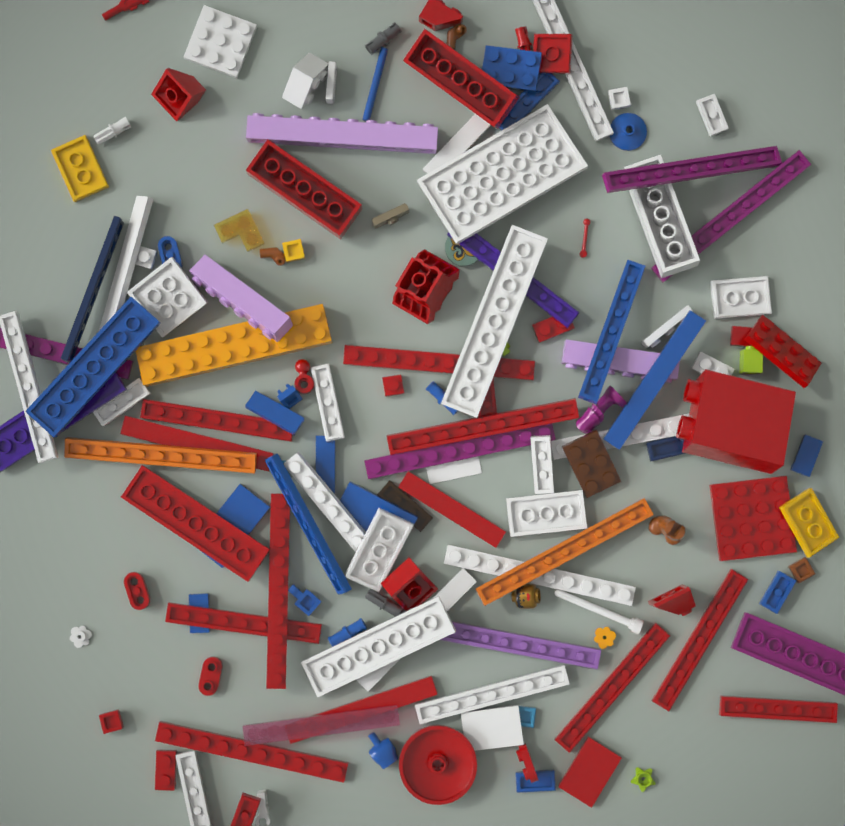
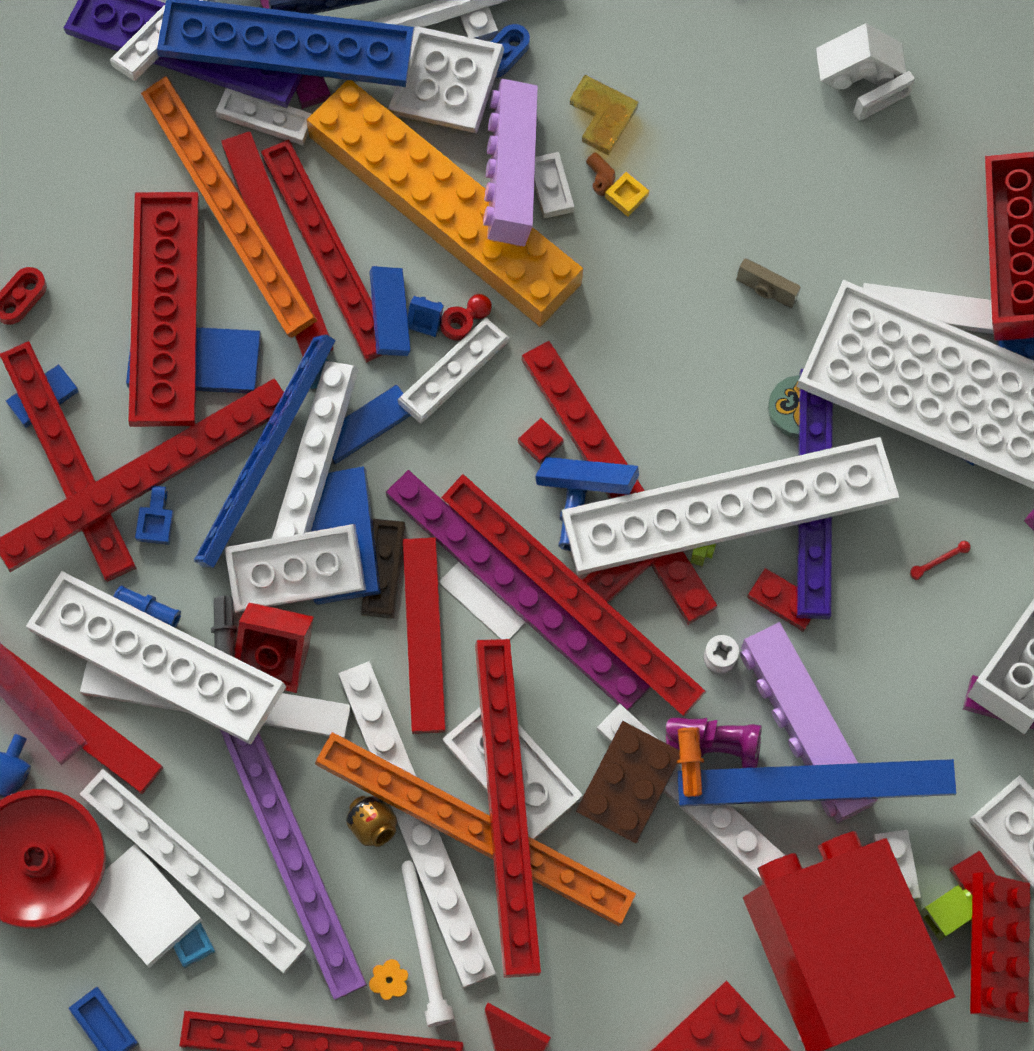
camera: 55 degrees right, 15 degrees down
(263, 284) = (552, 186): none -> white plate
(304, 189) = (718, 152): red brick -> none
(342, 134) = (830, 155): lavender brick -> none
(375, 84) = (926, 153): blue bar -> none
(383, 38) = (994, 121): dark grey pin -> none
(424, 285) = (708, 388): red slope -> none
(430, 377) = (587, 475): none -> blue tile
(529, 771) = (113, 999): red plate -> none
(542, 464) = (578, 712): white plate -> none
(559, 376) = (718, 660): none -> white wheel
(566, 530) = (507, 809): none -> red plate
(604, 430) = (690, 759): none -> orange axle
(611, 332) = (837, 675): blue plate -> none
(665, 448) = (728, 876): dark blue tile -> none
(667, 328) = (876, 747): white plate -> none
(672, 530) = (618, 963): dark orange piece -> none

